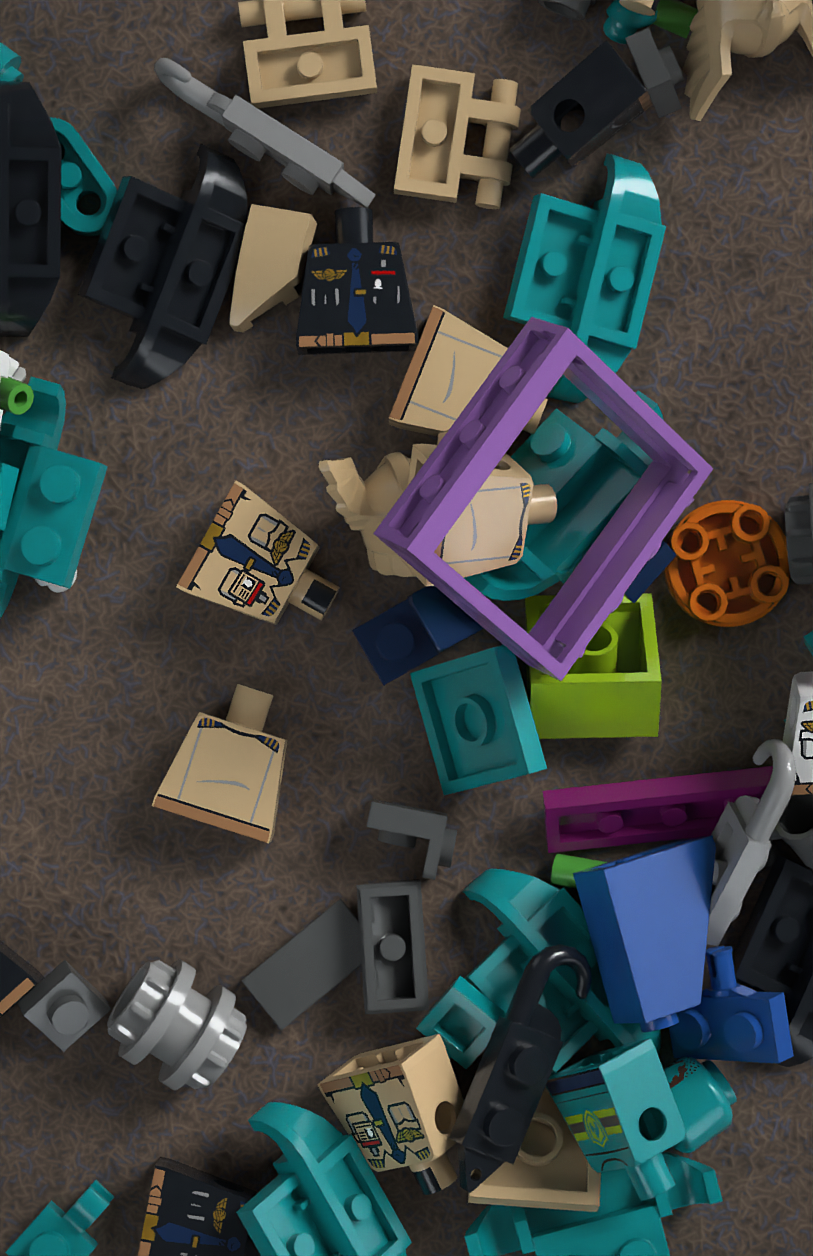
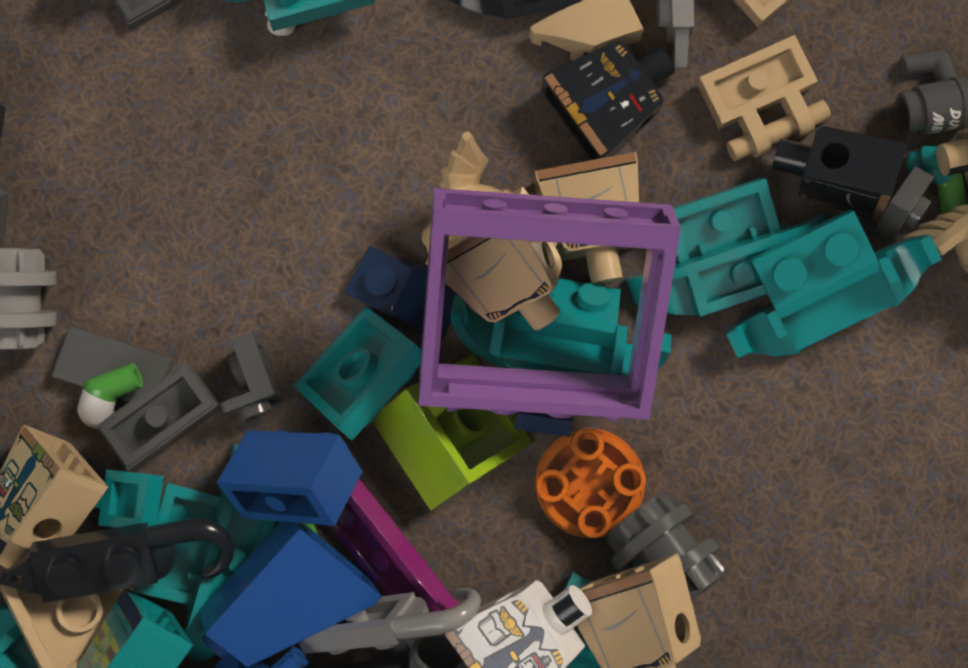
camera: 55 degrees right, 5 degrees down
(229, 770) = (213, 221): tan torso -> none
(256, 562) = (374, 147): torso -> none
(333, 988) = (101, 393): none -> bright green arm
(544, 849) = (290, 477): none -> blue brick
(685, 205) = (827, 284): none -> teal plate

